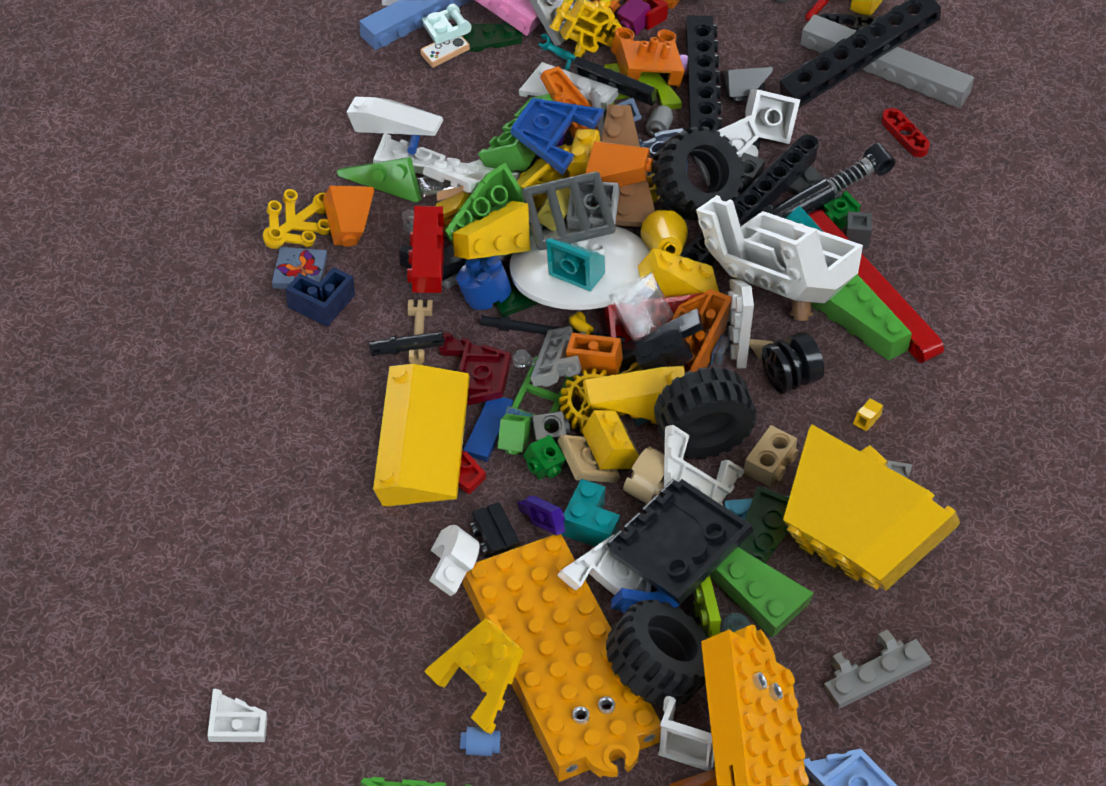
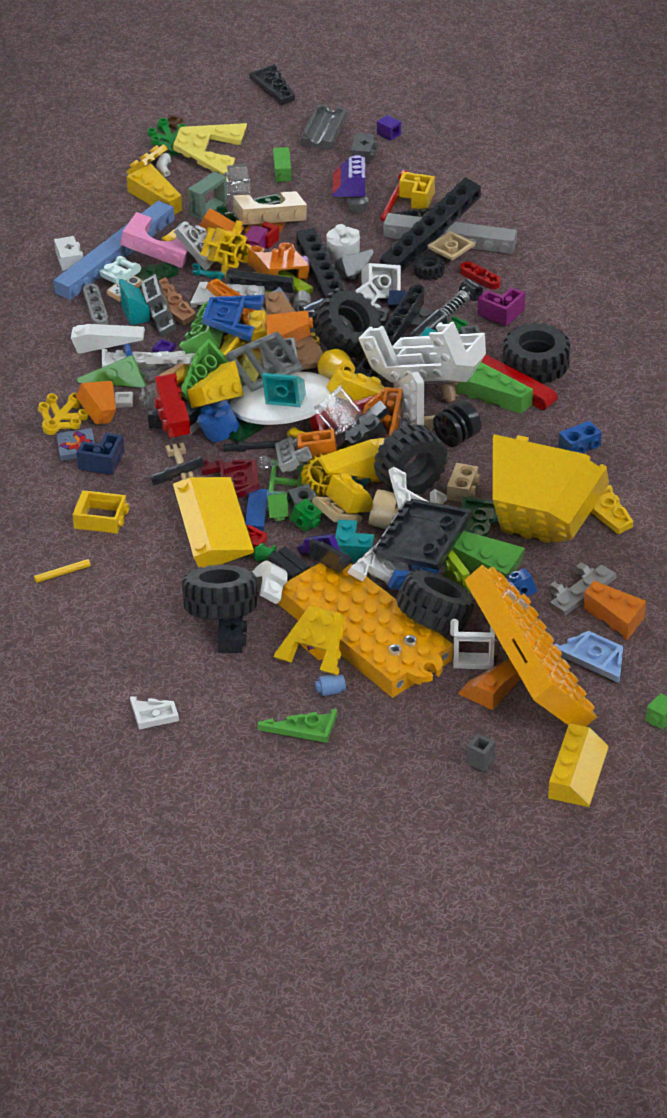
camera: 15 degrees left, 10 degrees down
(208, 460) = (61, 571): none -> yellow bar
(269, 369) = (100, 501): none -> yellow window
(381, 619) = (231, 635): none -> black brick
(383, 558) = (219, 592): none -> black tyre
(384, 215) = (124, 399): none -> white tile
(401, 67) = (97, 305): none -> light grey beam
(447, 76) = (133, 303): none -> teal slope
(462, 149) = (163, 345): none -> dark purple tile
(470, 501) = (262, 552): none -> green brick
(476, 87) = (158, 305): none -> dark grey slope
(493, 81) = (180, 310): none -> nougat wing
(545, 539) = (329, 555): none -> black panel
(742, 45) = (342, 241): none -> white brick
(782, 142) = (395, 297): none -> dark blue slope
(791, 642) = (523, 582): none -> blue brick
(844, 96) = (429, 267): none -> black tyre
(879, 82) = (451, 245): none -> tan slope
(910, 720) = (615, 608): none -> orange wedge
(914, 192) = (503, 307): none -> magenta brick
(942, 253) = (537, 351): none -> black tyre
(952, 425) = (580, 438): none -> blue brick
(959, 556) = (611, 512): none -> yellow wing

